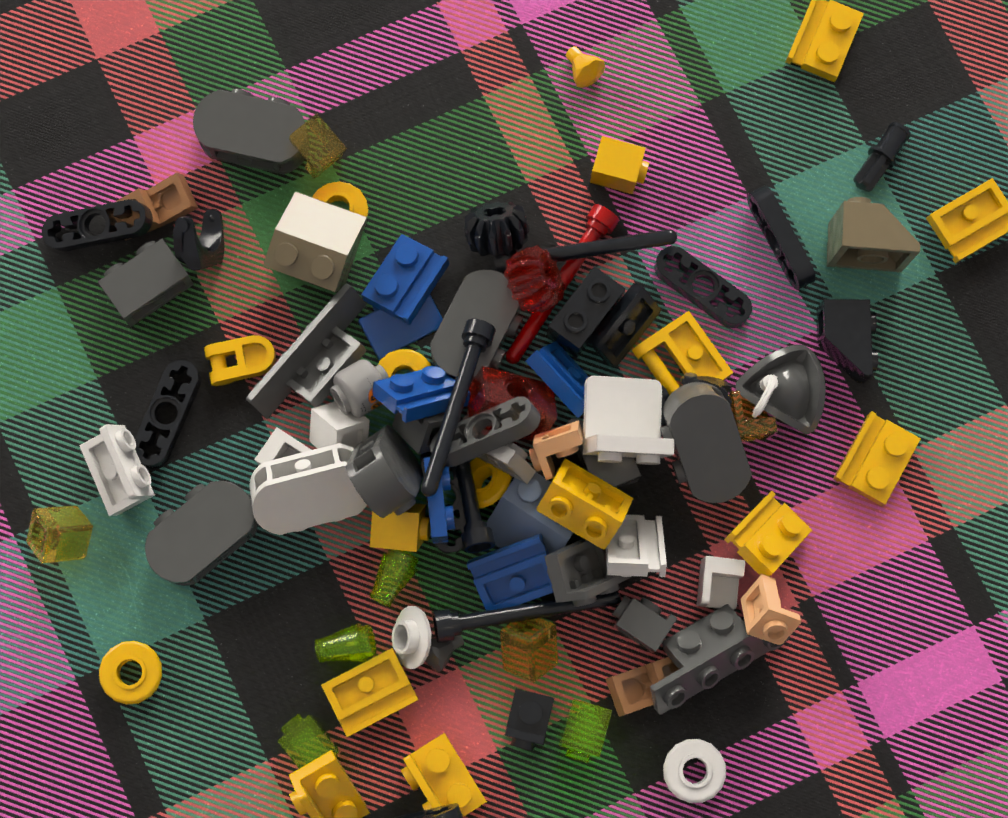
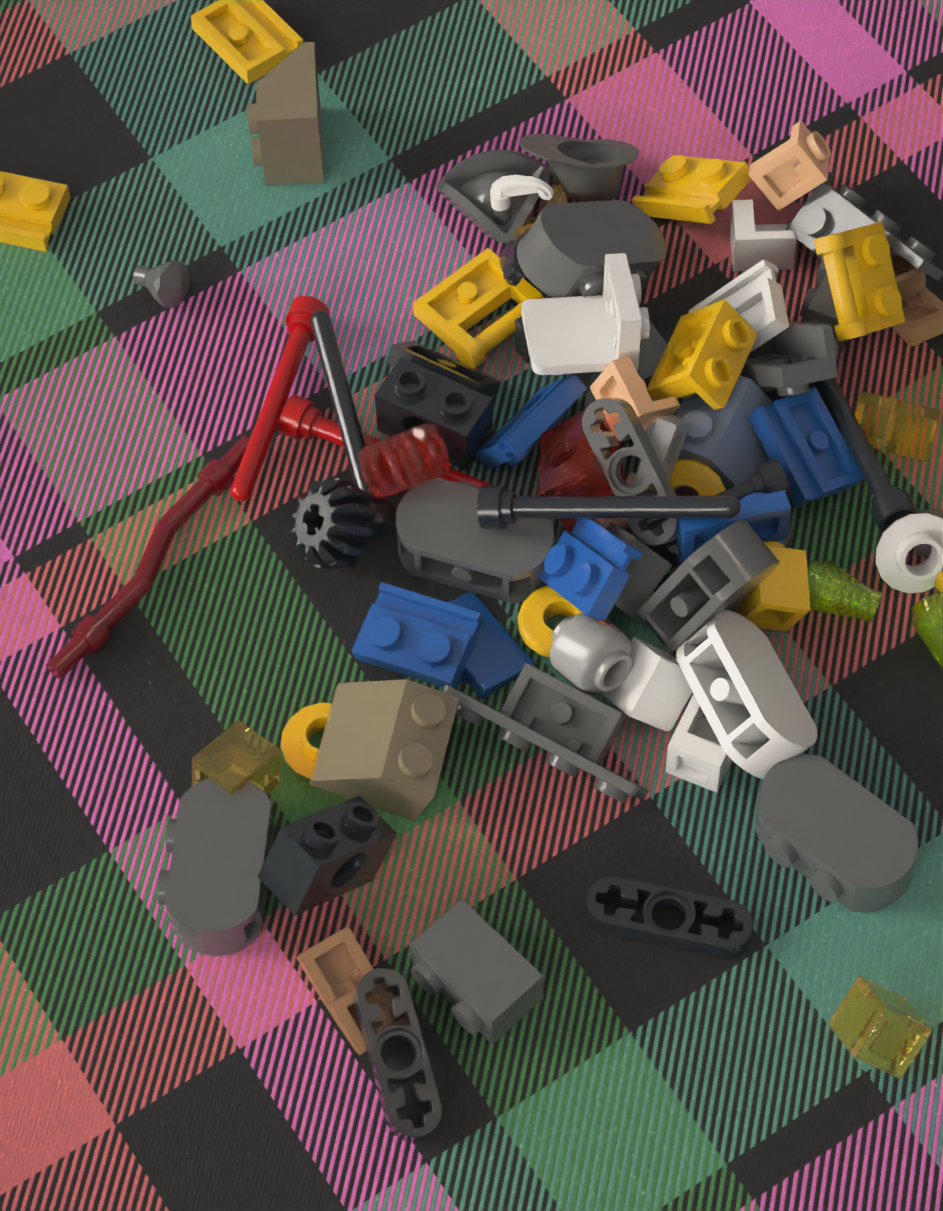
camera: 90 degrees left, 20 degrees down
(117, 469) = (769, 960): white bracket -> none
(201, 251) = (403, 899): black helmet -> none
(234, 193) = (326, 854): none -> black brick
(253, 354) = (565, 811): yellow plate -> none
(448, 69) = (94, 631): none -> dark red bar
(585, 68) = (78, 463): yellow rock -> none
(619, 165) = (218, 405): yellow brick -> none
(645, 647) = (861, 280): none -> yellow plate
(687, 232) = (300, 335): none -> red piece
(731, 294) = (376, 280): black beam -> none
(736, 139) = (165, 282): none -> dark grey rock
(781, 237) = (272, 231): black beam -> none
(807, 452) = (583, 167): none -> dark grey piece
(845, 335) = (420, 139): black slope -> none
(877, 459) = (567, 103): yellow plate -> none
(881, 156) = (171, 131): black axle -> none

